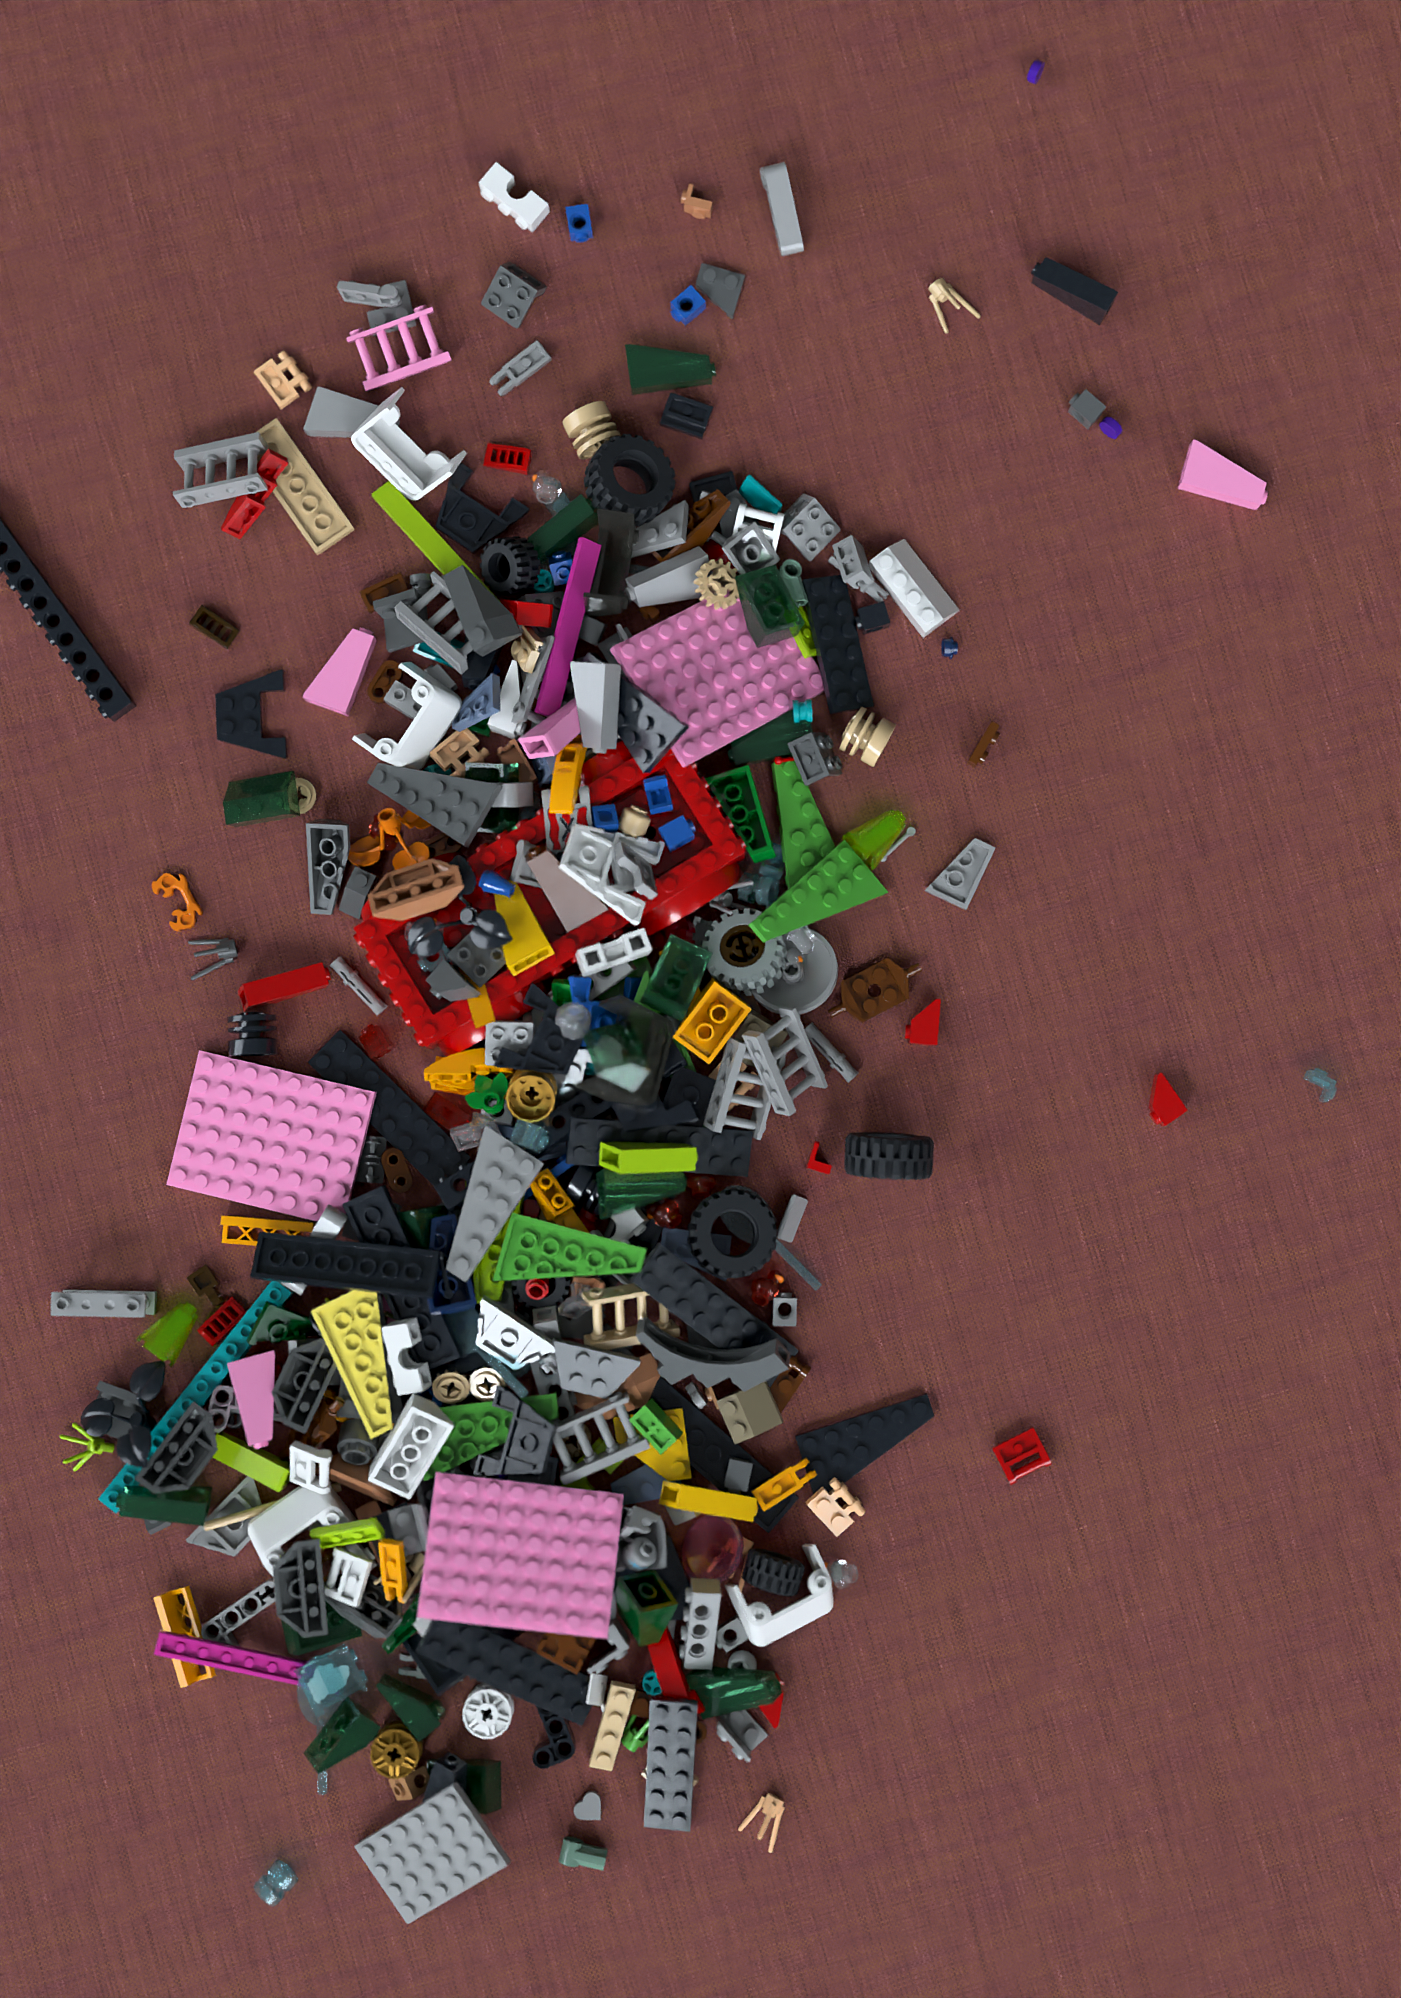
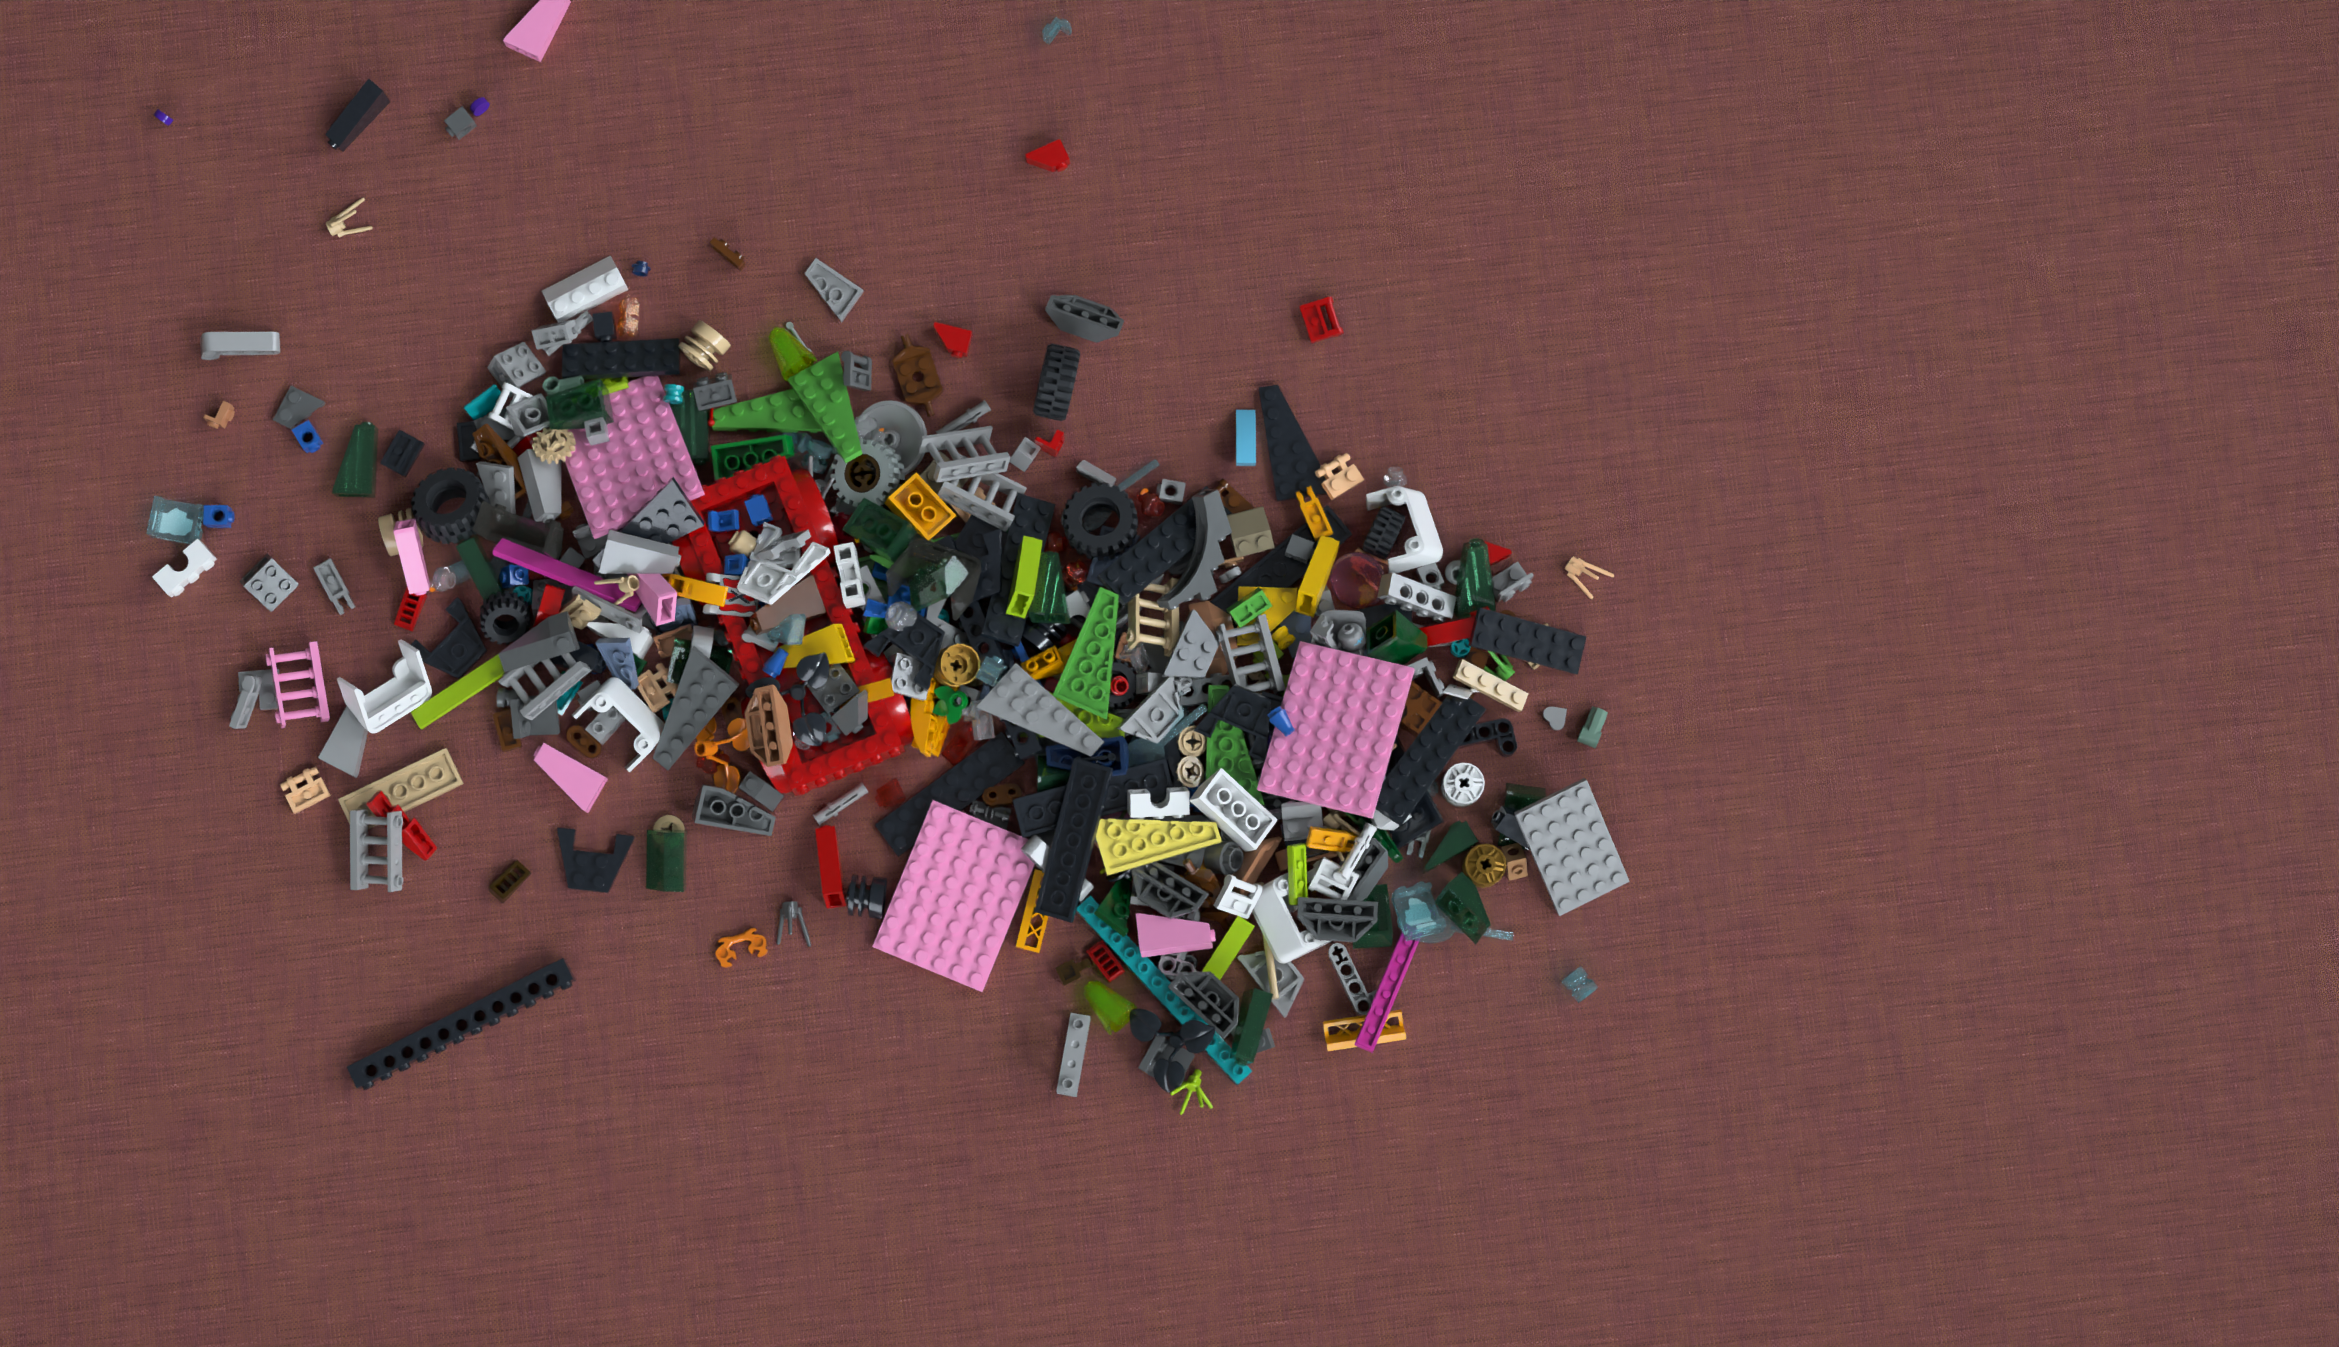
camera: 90 degrees left, 5 degrees down
(383, 1601) = (1357, 850): none -> white pin
(519, 1489) = (1281, 721): none -> blue cone
(531, 894) = (789, 630): none -> clear light blue slope
(561, 445) = (412, 556): none -> bright pink slope
(561, 696) = (626, 584): none -> tan plant
(567, 176) = (175, 520): none -> clear light blue panel
(630, 1470) = (1283, 637): none -> yellow wheel
(741, 630) = (596, 431): none -> light grey plate
(800, 1131) = (1024, 454): none -> light grey brick
(859, 922) = (854, 376): none -> dark grey plate
(864, 1388) = (1245, 438): none -> medium azure slope
(898, 641) = (628, 309): none -> clear orange hinge
(976, 1175) = (1084, 317): none -> dark grey wedge

